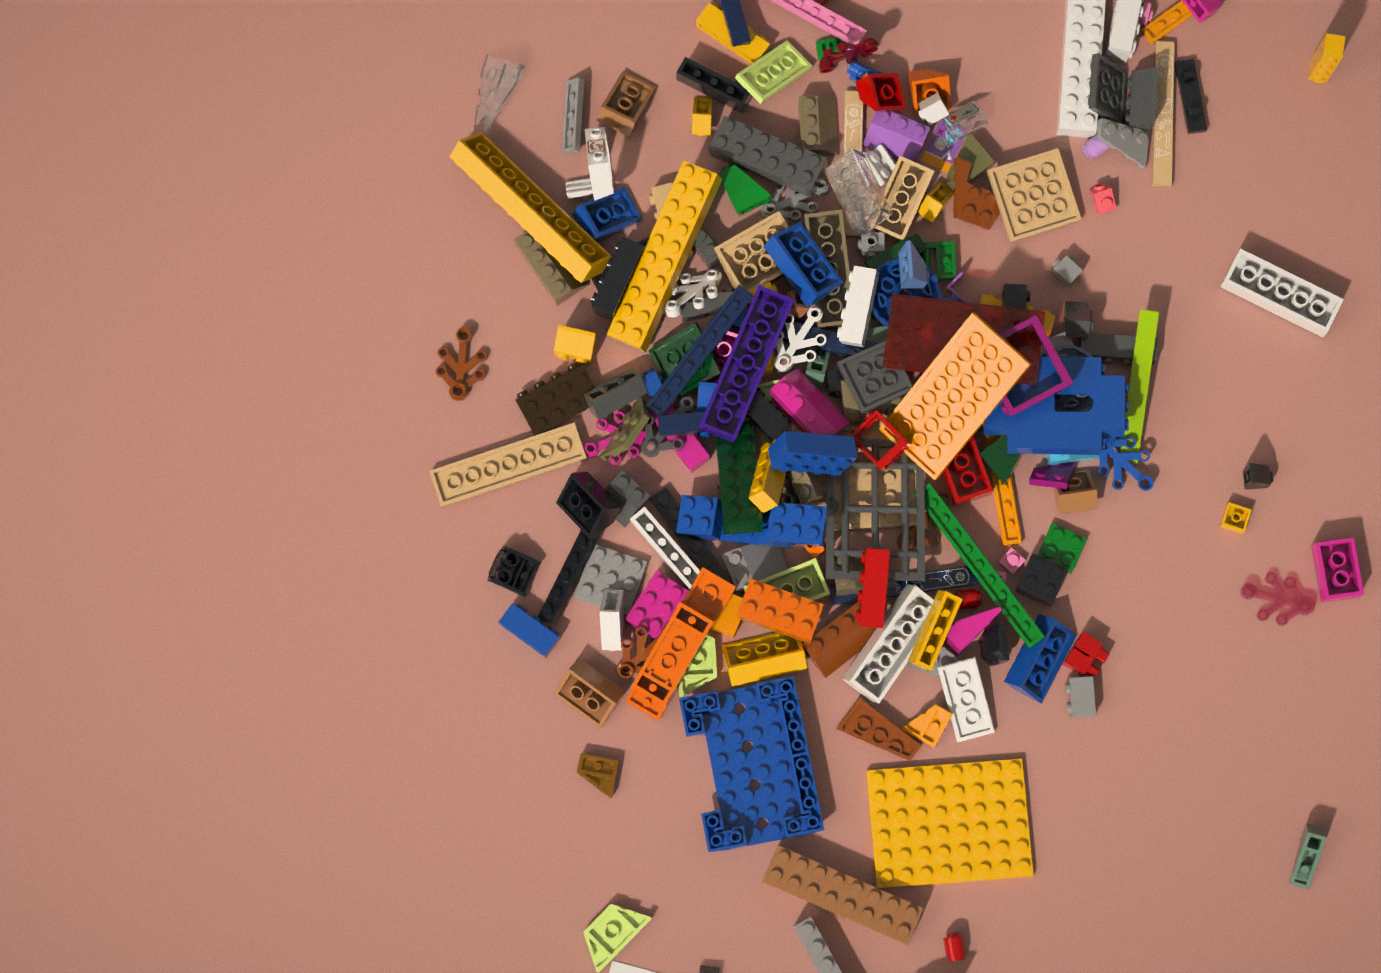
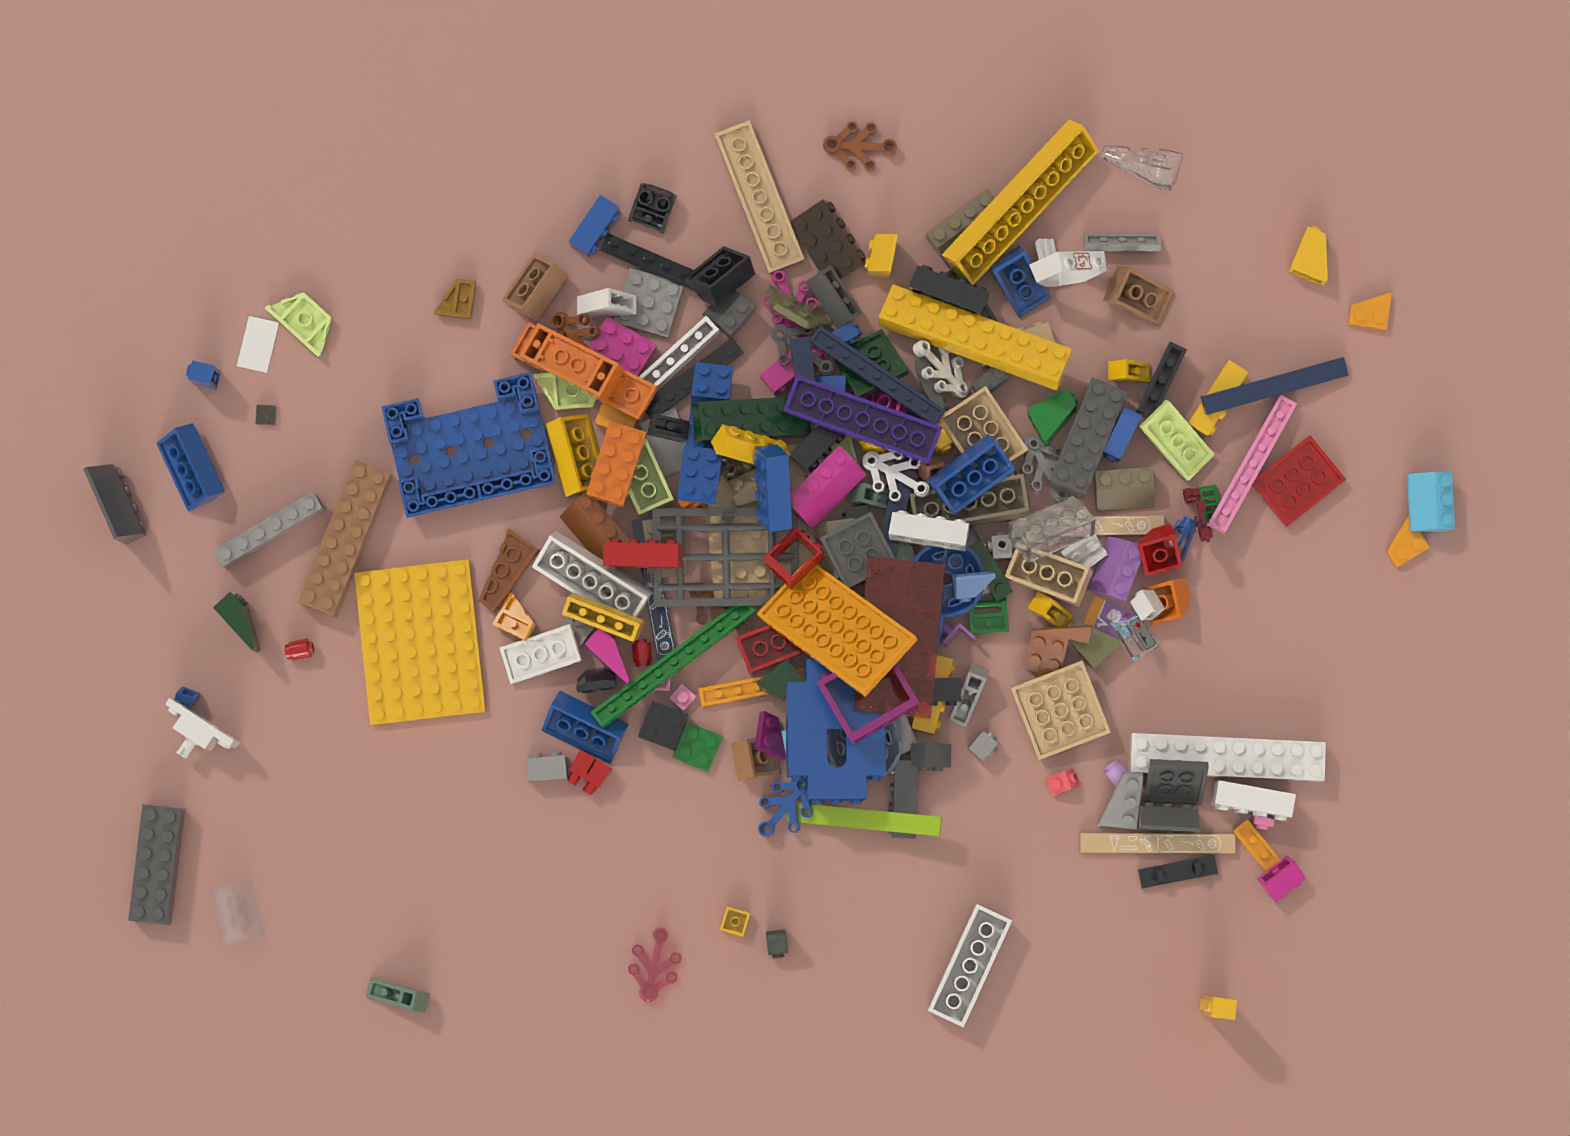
camera: 90 degrees right, 5 degrees up
(743, 559) = (668, 428): none -> black slope
(765, 121) = (1121, 435): none -> blue slope
(1004, 273) = (970, 694): none -> light grey slope
(1337, 570) = (683, 1023): dark pink brick -> none

